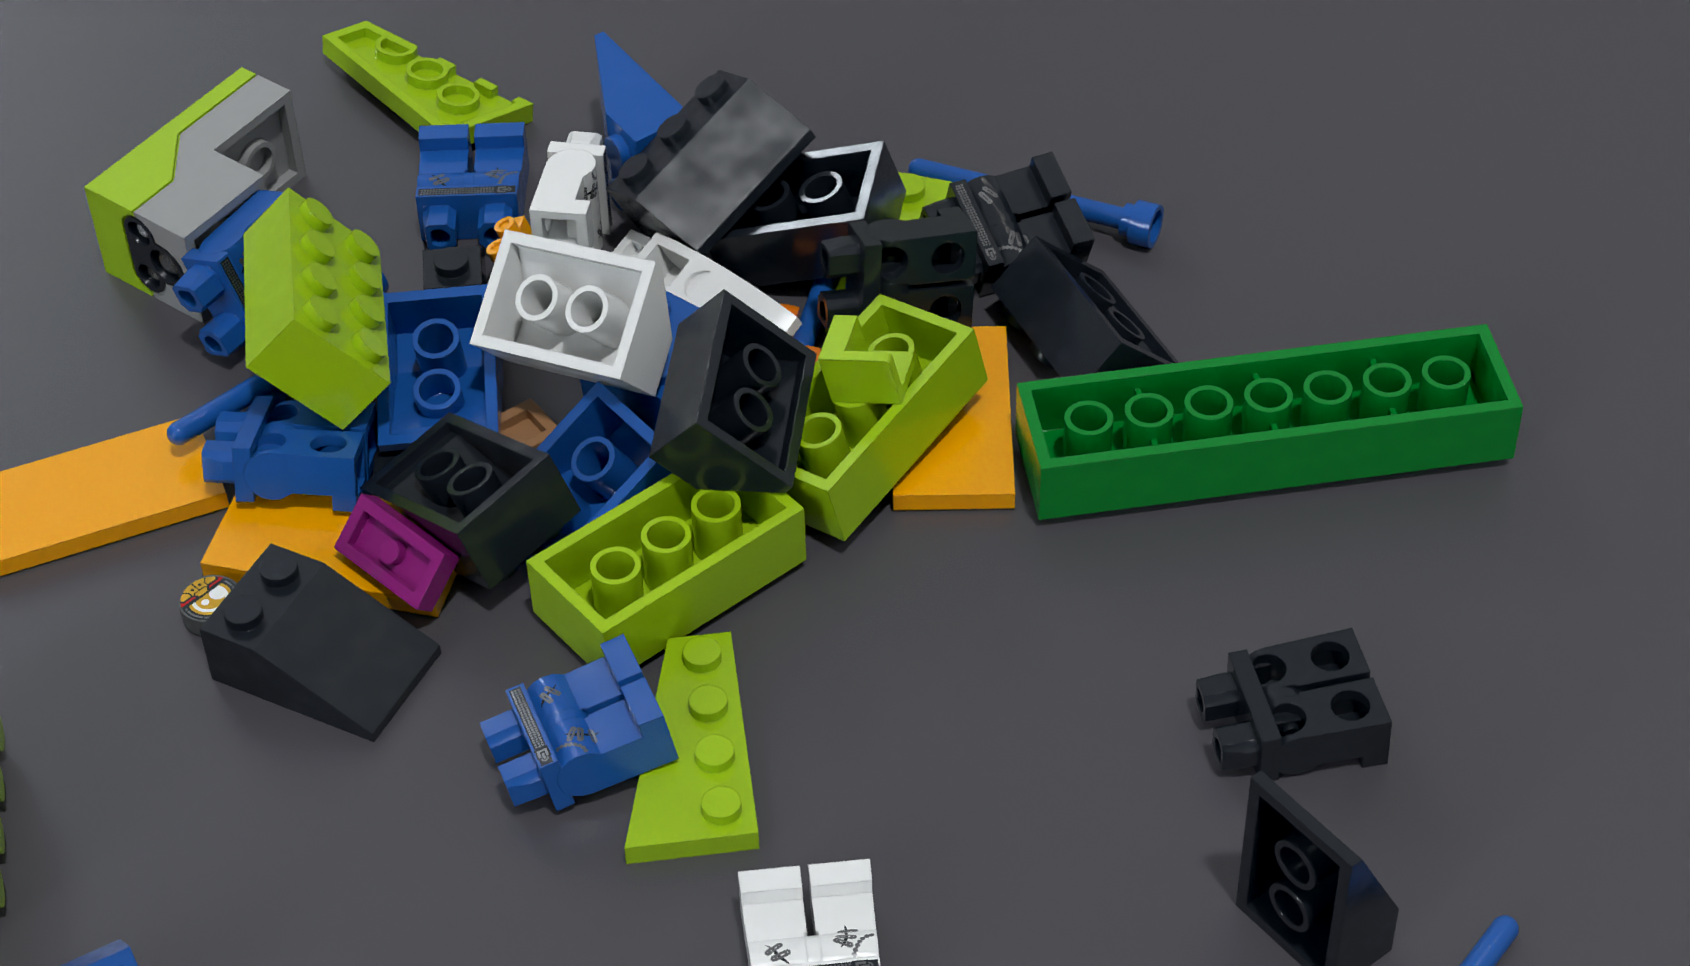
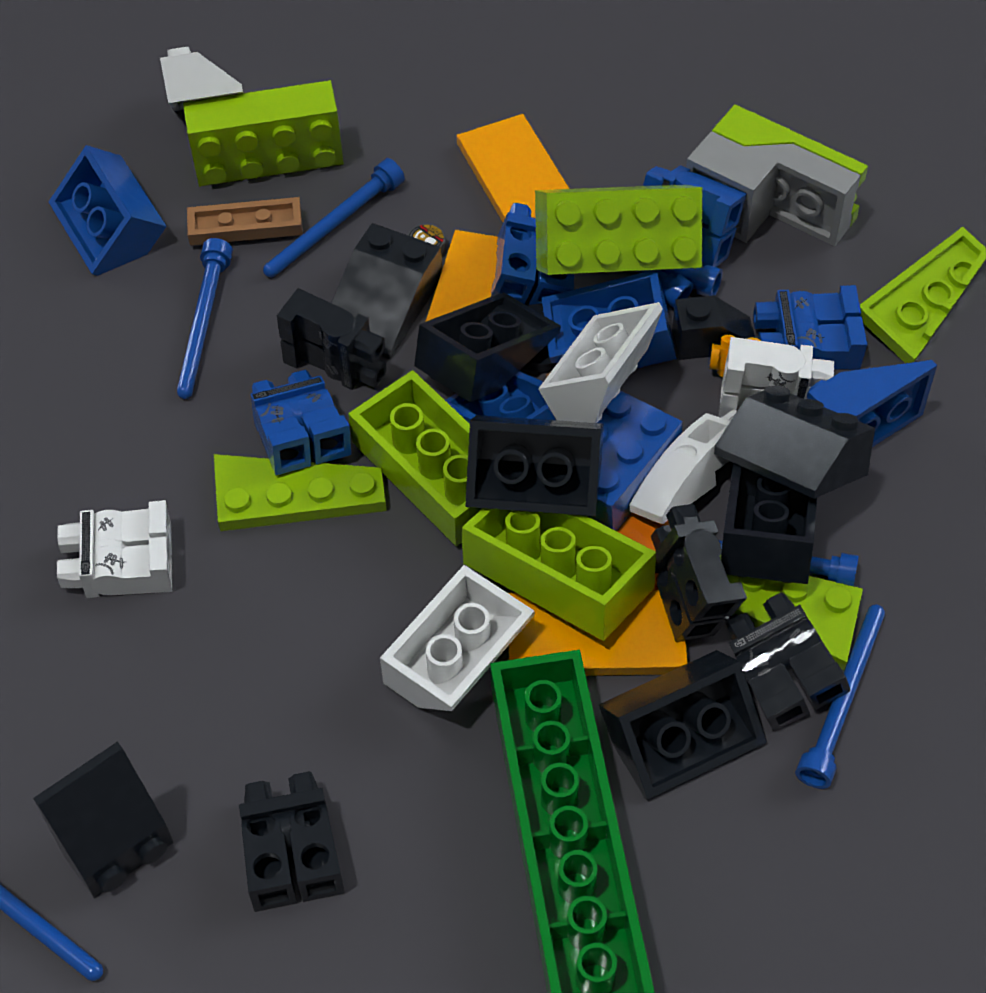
camera: 90 degrees right, 10 degrees up
(59, 655) = (386, 177): none -> blue piece
(116, 843) = (245, 220): none -> medium nougat plate
(194, 879) = (215, 257): none -> blue piece
(396, 552) = (455, 299): magenta plate -> none
(432, 684) = (330, 340): none -> black hips
(862, 374) = (563, 534): lime panel -> none
(993, 527) = (453, 641): none -> white slope

